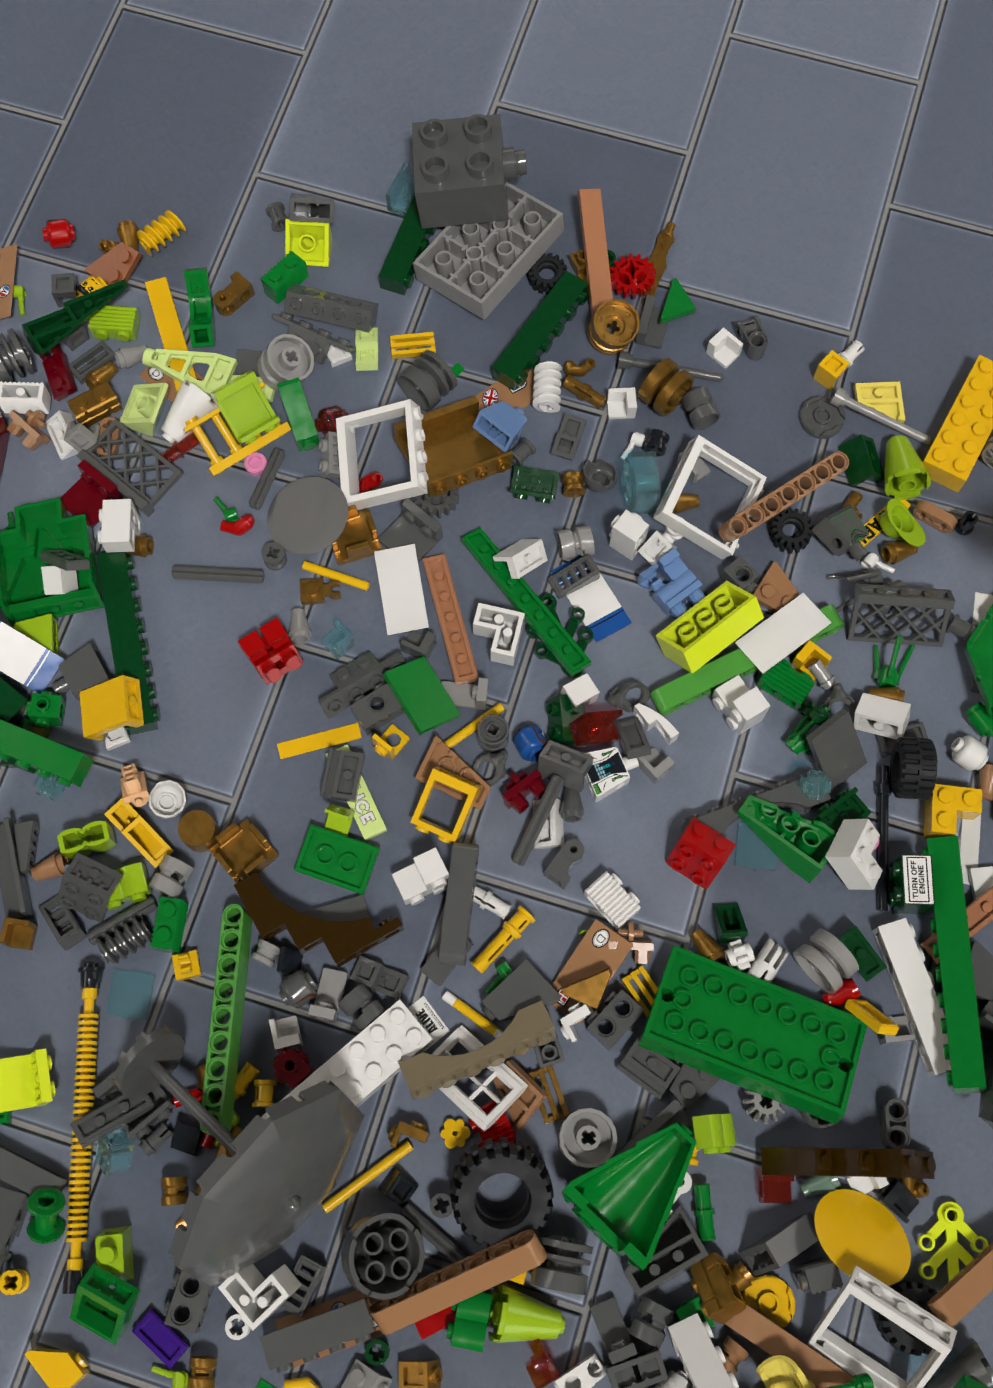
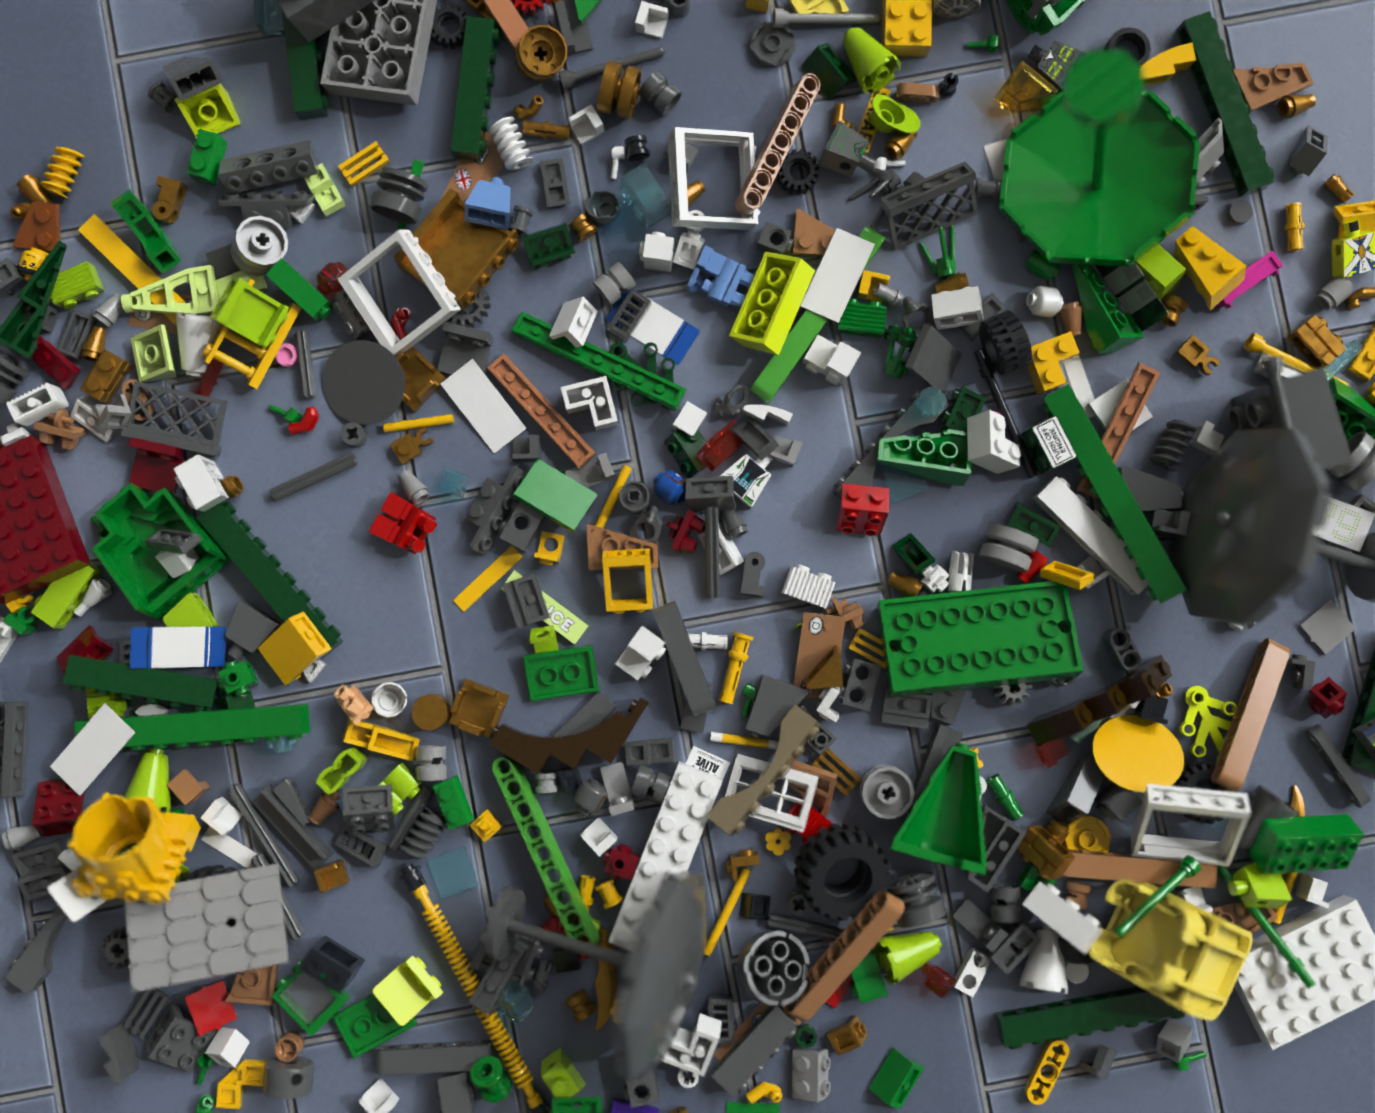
camera: 30 degrees left, 15 degrees up
(714, 1133) = (985, 734): lime brick -> none

